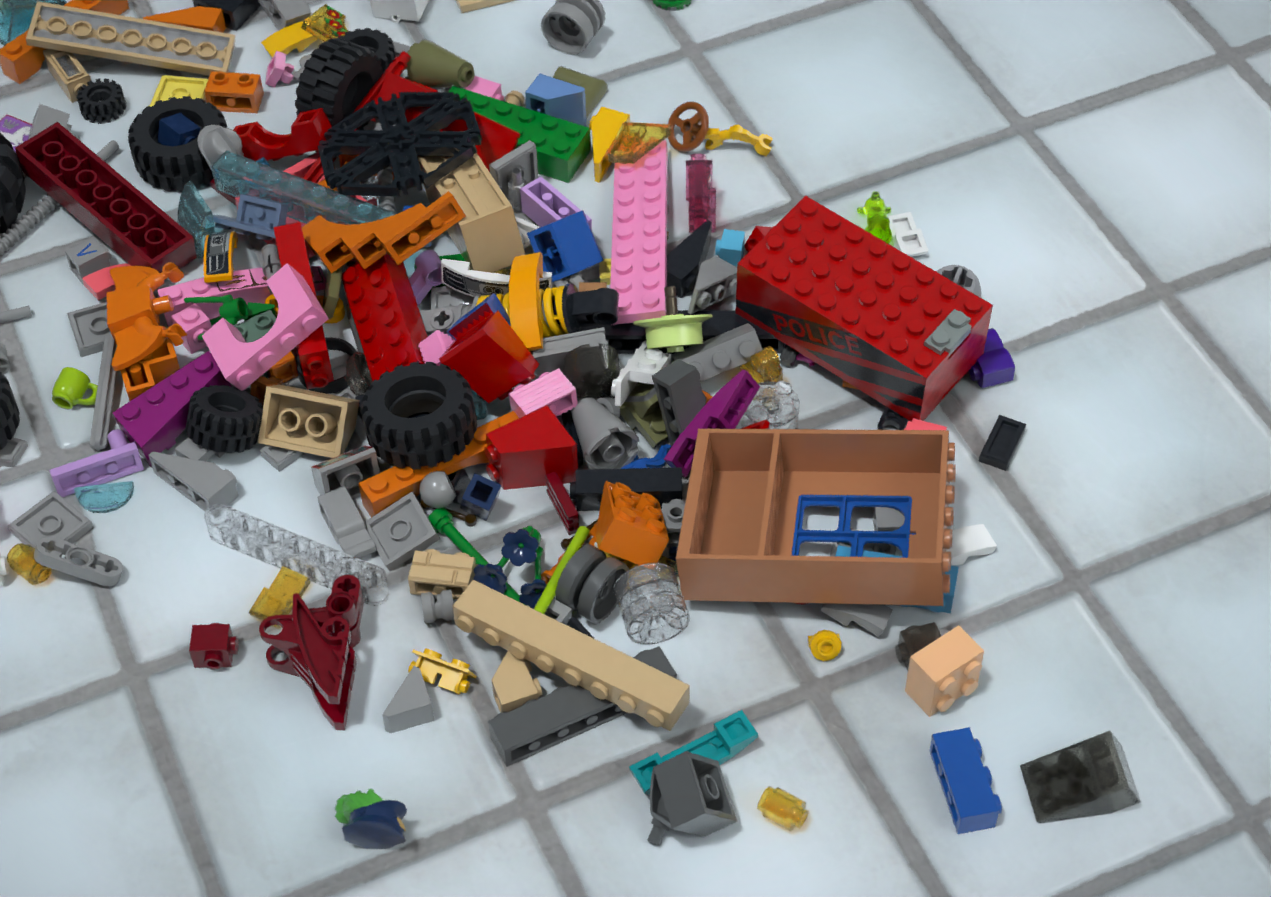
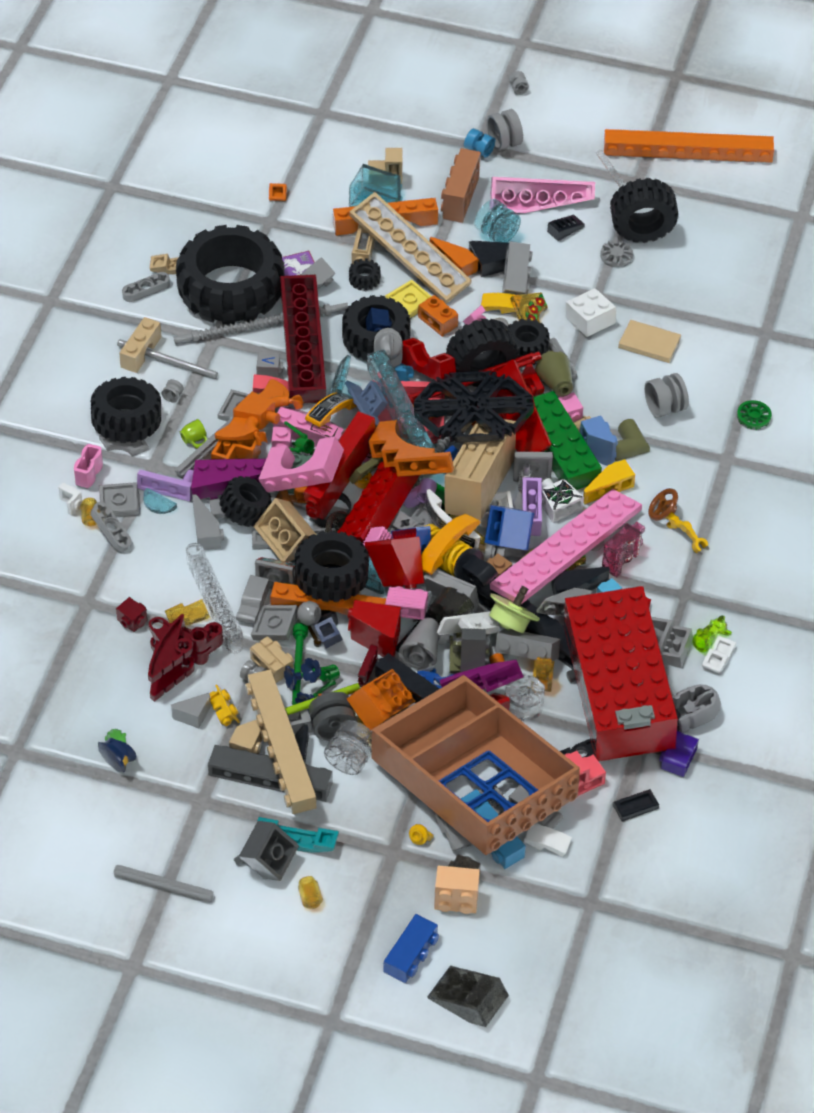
camera: 40 degrees right, 0 degrees up
(578, 185) = (560, 499): none -> white torso
(636, 140) = (618, 492): clear yellow wing -> none

